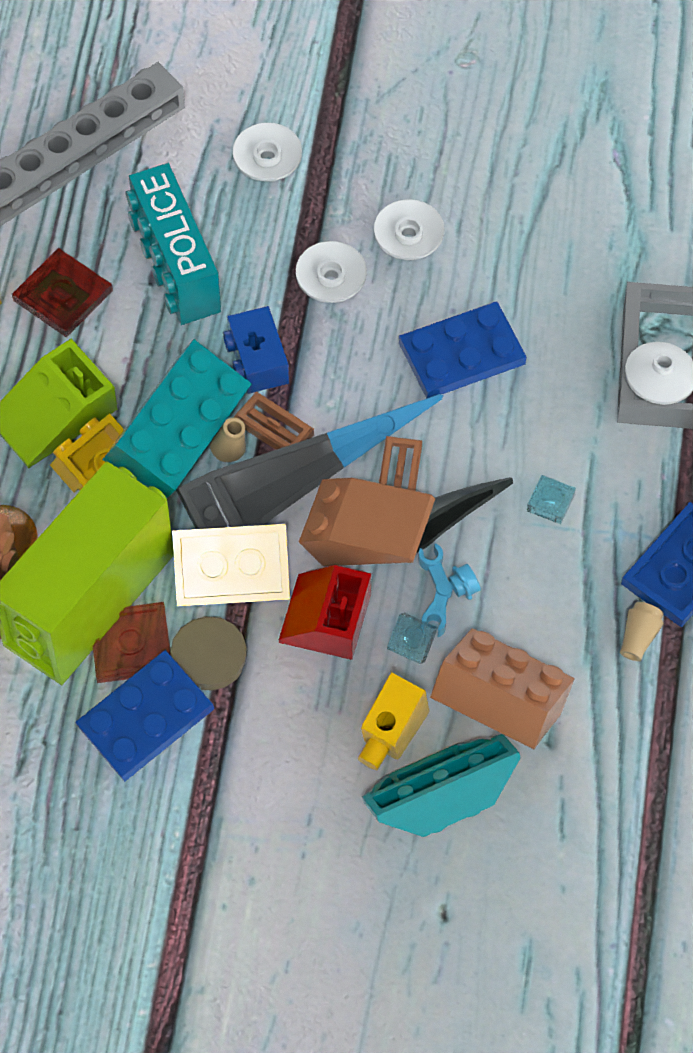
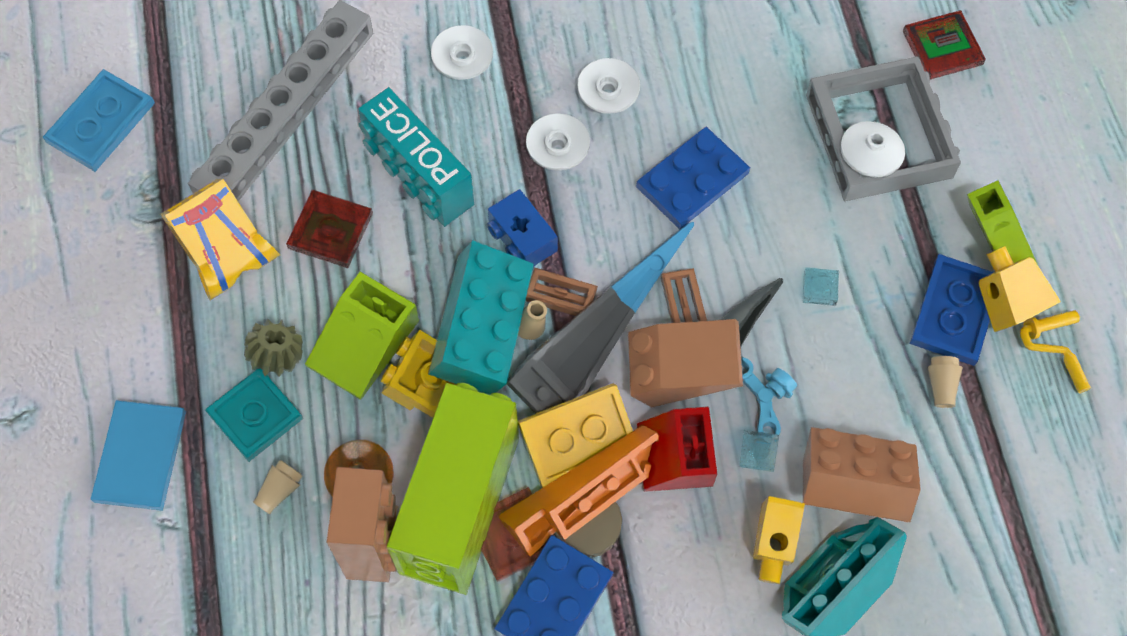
camera: 20 degrees left, 5 degrees up
(213, 620) = (581, 492): none -> orange wedge

